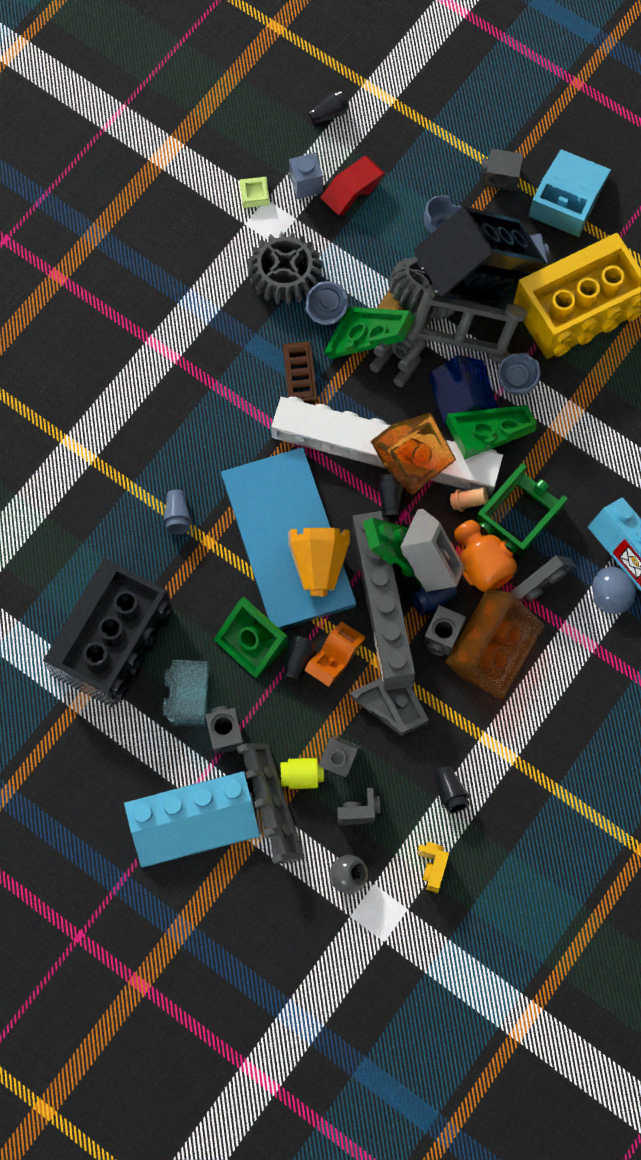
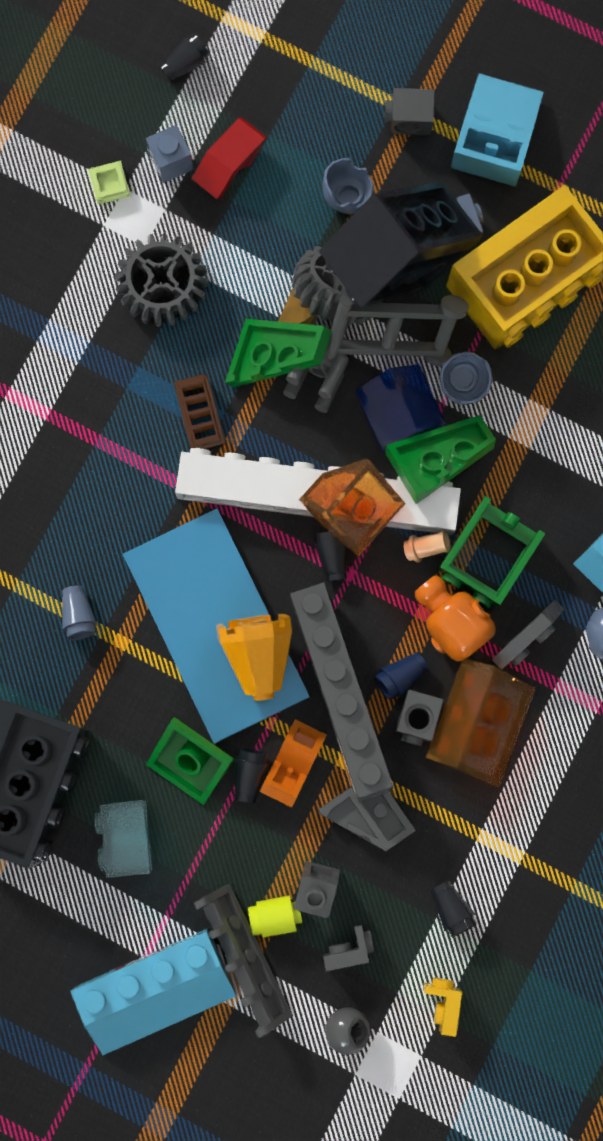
camera: 10 degrees left, 10 degrees up
(224, 743) = (175, 894): dark grey brick -> none
(326, 303) = (219, 320): sand blue hair -> none
(385, 541) = (351, 626): green wing -> none
(431, 553) = (392, 630): light grey slope -> none

